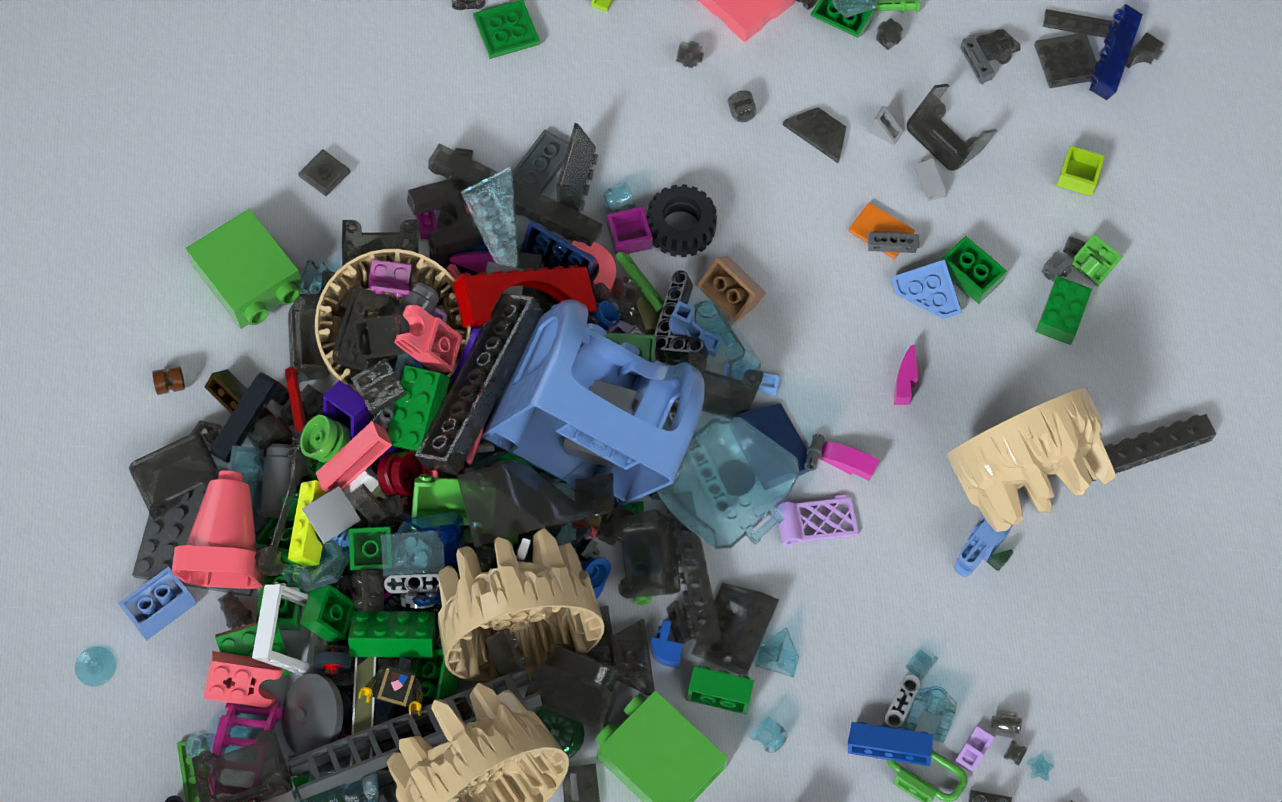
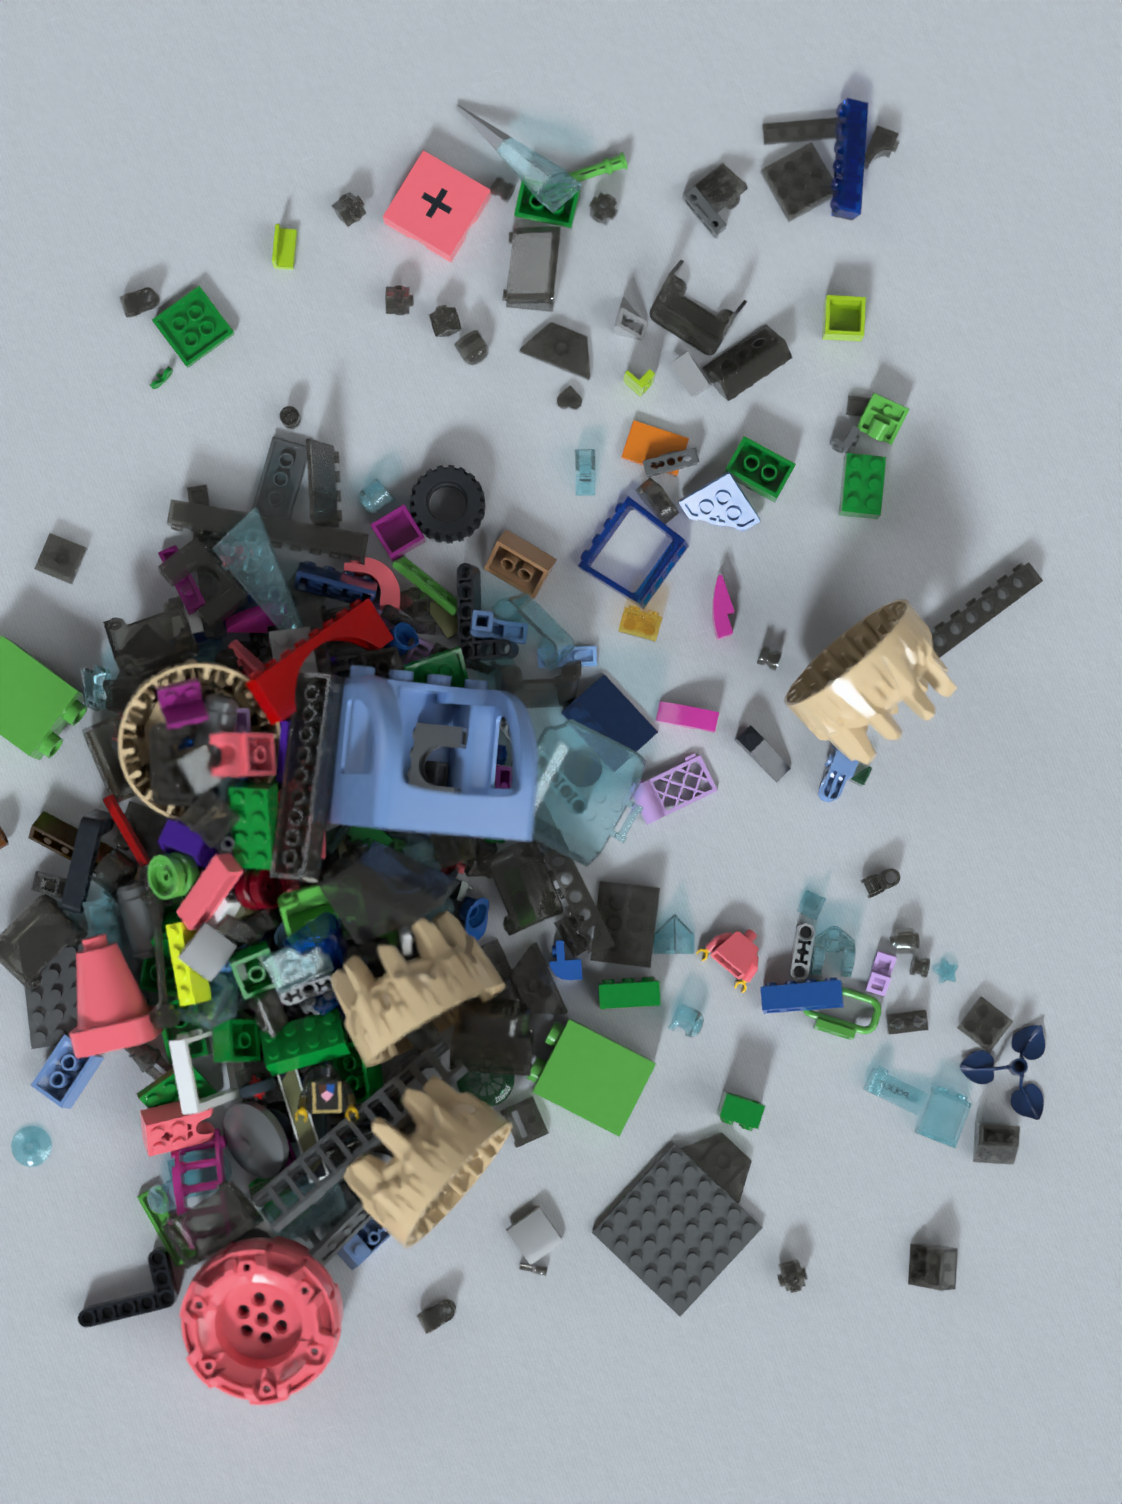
camera: 20 degrees left, 20 degrees up
(459, 63) = (162, 379): none -> green piece
(565, 118) = (290, 421): none -> clear smoke wheel
(725, 80) = (445, 321): none -> clear smoke brick
(812, 231) = (585, 472): none -> clear light blue brick
(814, 61) = (533, 268): none -> clear smoke windscreen
(814, 452) = (652, 719): dark grey pin -> none
(815, 171) = (569, 399): none -> clear smoke tile
(827, 367) = (640, 623): none -> clear yellow bracket
(835, 685) = (735, 954): none -> coral torso
(853, 332) = (659, 571): none -> clear blue windscreen
(872, 271) = (657, 500): none -> clear smoke arch
(882, 172) = (639, 386): none -> lime panel
(910, 511) = (762, 753): none -> slope
(940, 431) = (770, 658): none -> clear smoke wheel
(985, 184) = (748, 362): none -> clear smoke slope
(992, 661) = (879, 882): none -> clear smoke piece

